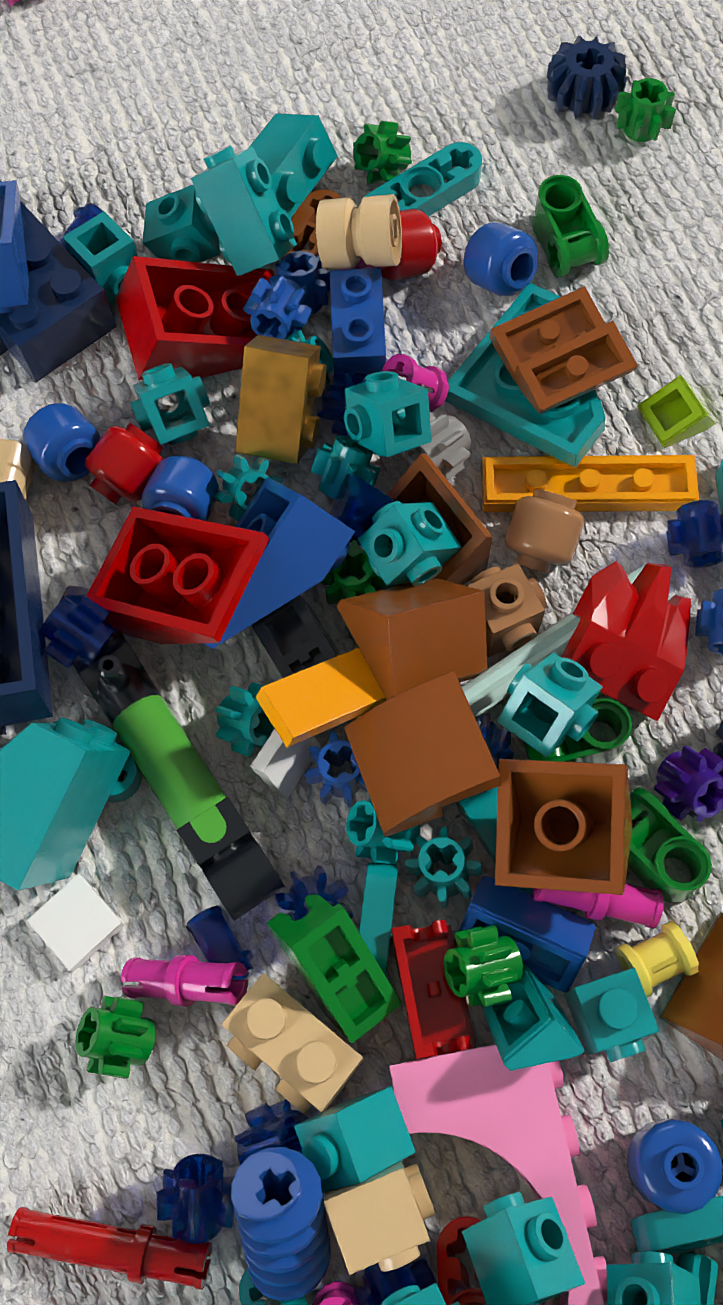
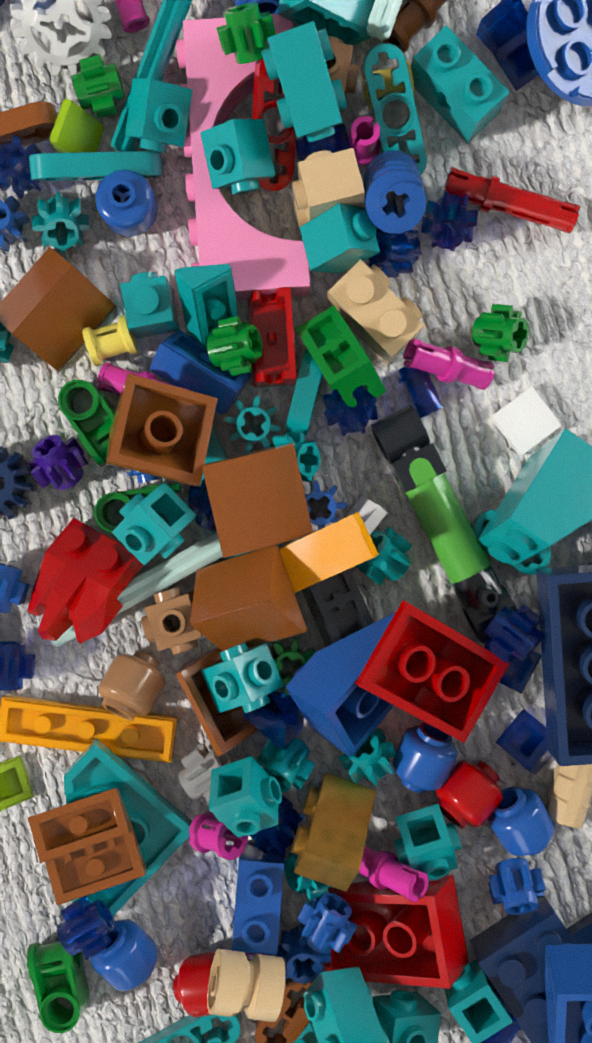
camera: 175 degrees left, 20 degrees up
(60, 532) = (526, 742): none -> clear blue slope
(64, 376) = (516, 886): none -> blue gear
(214, 366) = (387, 872): none -> dark pink pin
(547, 269) = (85, 927): none -> clear blue gear

